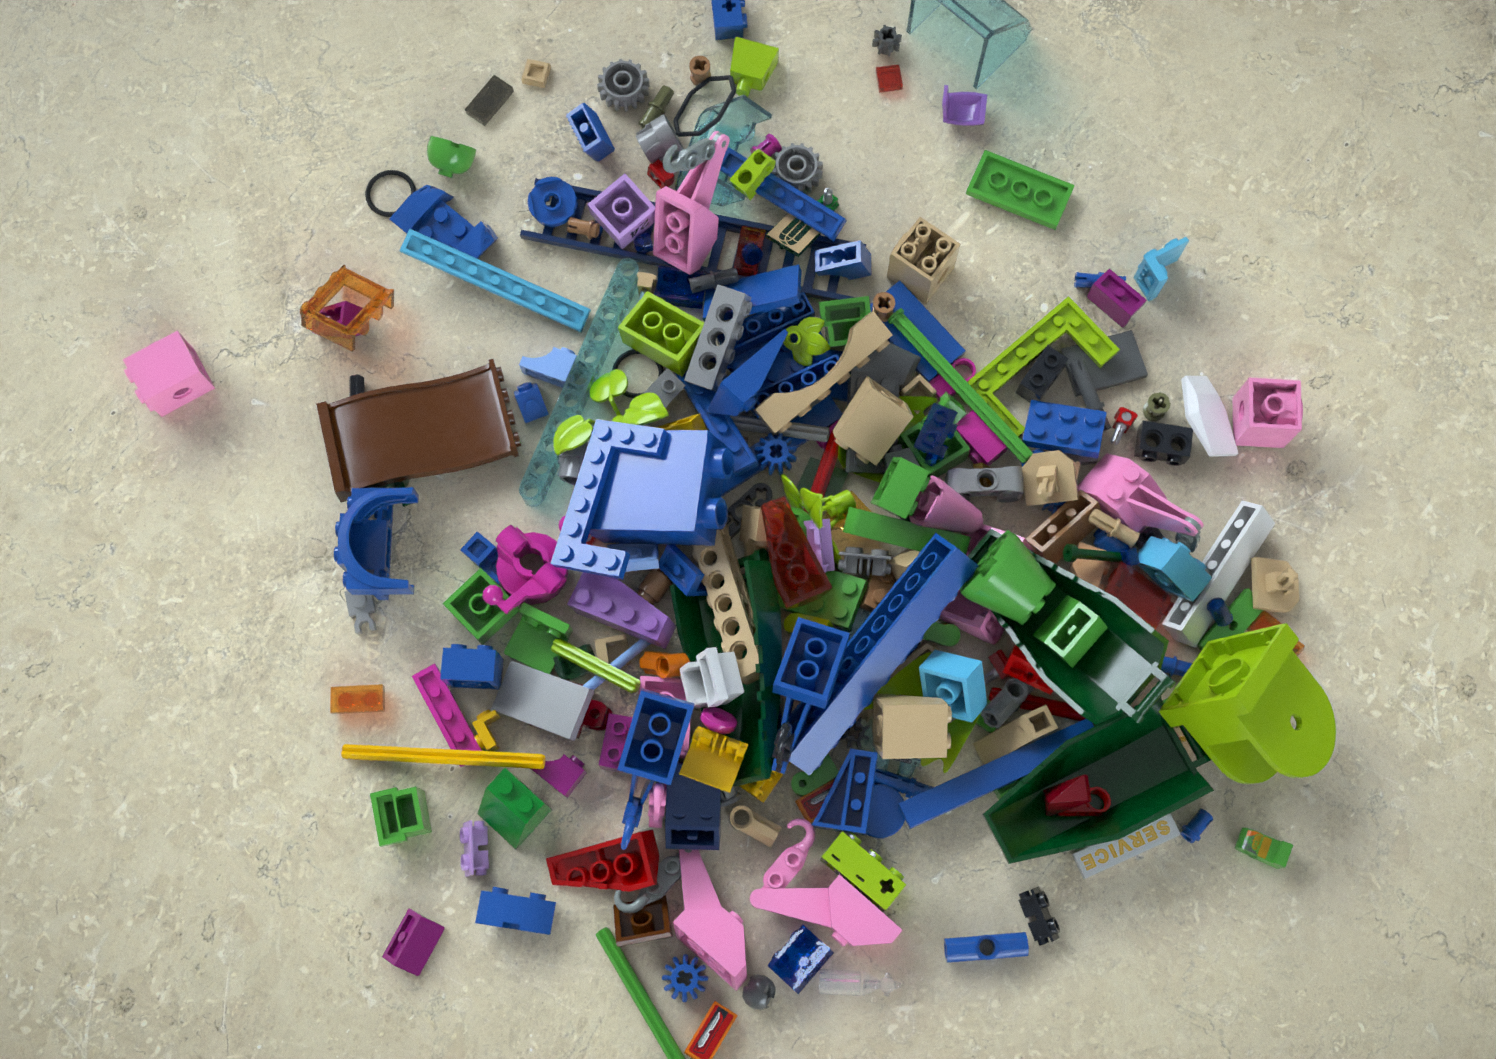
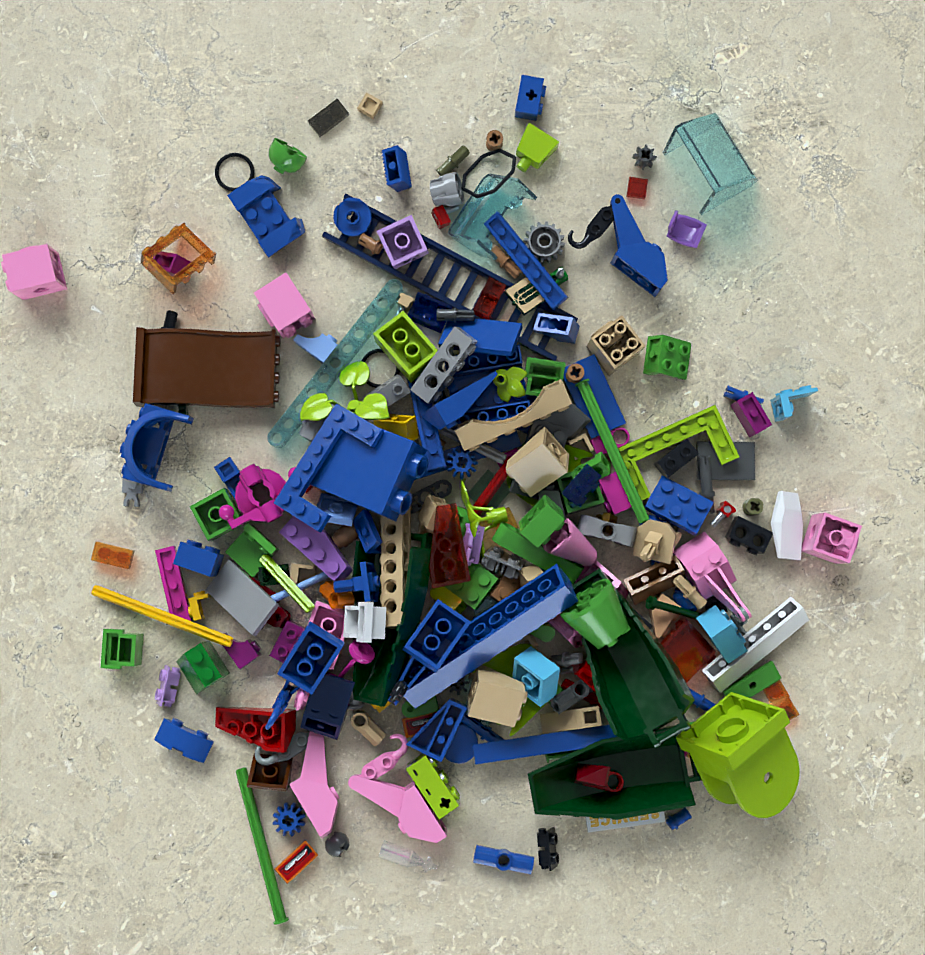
camera: 10 degrees right, 10 degrees up
(413, 942) = (108, 739): magenta panel -> none
(495, 280) = (293, 267): medium azure tile -> none
(497, 327) = (284, 306): none -> bright pink brick
(530, 402) = (294, 368): blue bracket -> none
(623, 73) = (433, 145): light grey gear -> none
(643, 243) = (411, 269): clear blue hinge -> none
(683, 221) = (443, 265): bright pink slope -> none
(695, 633) = (367, 582): none -> blue piece
(713, 759) = (349, 679): yellow hinge -> none
(751, 254) = (489, 303): clear blue hinge -> none
(752, 173) = (508, 240): lime leg -> none
(761, 207) = (506, 262): none -> medium nougat axle
(768, 146) = (525, 219): dark pink bush -> none
(800, 958) = (372, 830): clear blue bracket -> none
(914, 153) = (635, 257): none -> blue slope
(989, 258) = (667, 356): none -> bright green bracket
(992, 655) = (567, 659): none -> light grey axle
(1020, 189) = (707, 307): bright green plate -> none
(1070, 630) = (630, 663): bright green slope -> none
(1130, 556) = (694, 616): clear blue piece -> none
(1219, 611) = (745, 674): clear blue hinge -> none
(1263, 848) = (720, 848): bright green leg -> none
(1274, 585) = (792, 664): tan piece -> none

